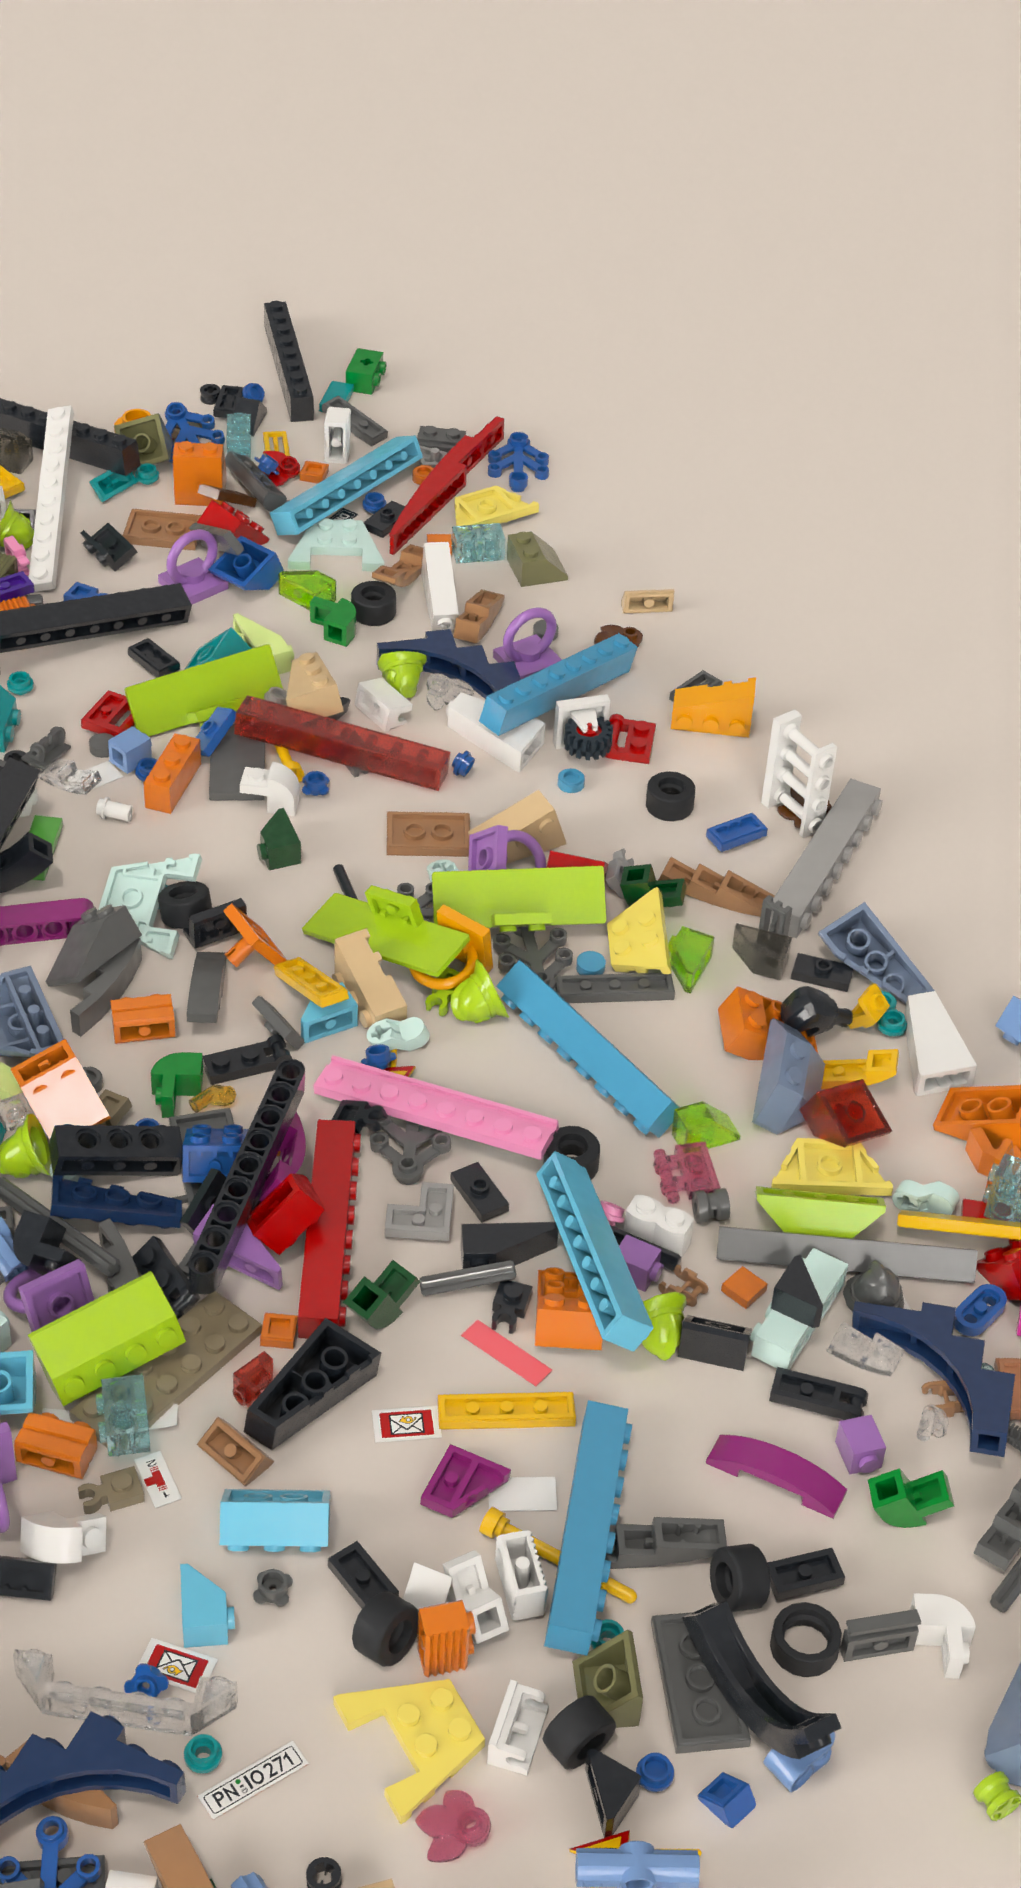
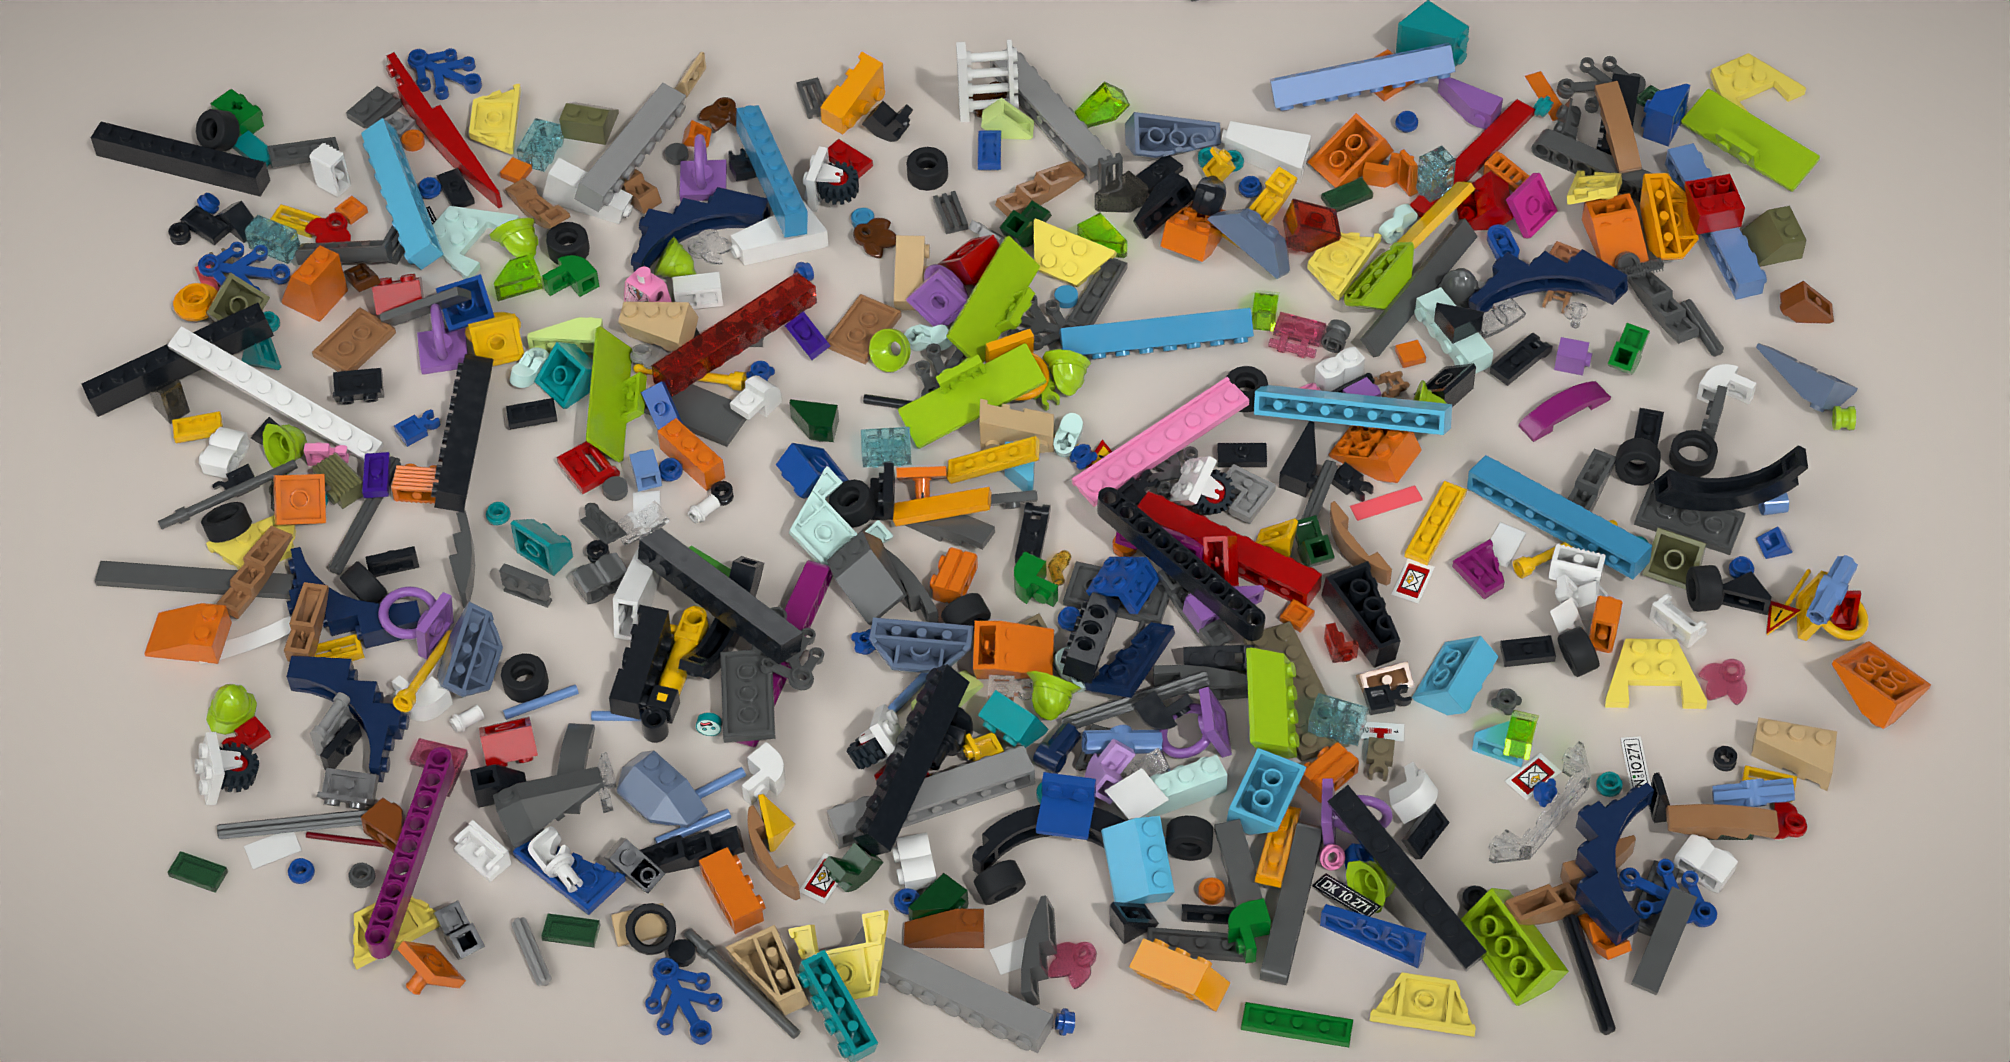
camera: 55 degrees left, 10 degrees up
(92, 1041) = (966, 610): none -> black tyre
(144, 816) = (720, 486): none -> black bush
(196, 634) = (529, 366): none -> light aqua piece
(197, 1813) = (1659, 800): none -> black slope
(200, 1456) = (1383, 699): none -> black plate
(203, 1200) = (1171, 605): black plate -> none
(204, 1605) = (1521, 734): none -> clear neon green slope
(216, 598) = (497, 338): none -> yellow tile
(219, 966) = (942, 506): none -> light orange tile
(222, 860) = (804, 465): none -> blue slope
(267, 464) = (330, 233): blue plate -> none
(279, 903) = (886, 446): none -> clear light blue brick
(331, 363) = (217, 129): none -> black tyre
(348, 658) = (645, 287): none -> bright pink torso
(351, 567) = (517, 236): none -> lime piece
(371, 1264) = (1279, 536): none -> yellow slope
(384, 796) = (807, 335): none -> dark purple plate
(391, 1169) = (1203, 487): none -> white plate
(407, 856) = (881, 352): none -> lime piece
(429, 1314) = (1351, 548): none -> medium nougat slope
(509, 585) = (630, 148): none -> light grey brick
(559, 794) = (878, 236): none -> reddish brown plate
(580, 634) = (693, 129): none -> orange slope
(628, 835) = (947, 199): none -> dark grey tile
(704, 744) = (887, 123): none -> black brick
(770, 982) = (1163, 202): none -> black slope
(784, 829) = (1008, 119): none -> yellowish green slope
(865, 1044) = (1250, 186): none -> blue plate
(875, 888) = (1103, 105): none -> clear neon green slope
(932, 1141) = (1347, 195): none -> clear green tile

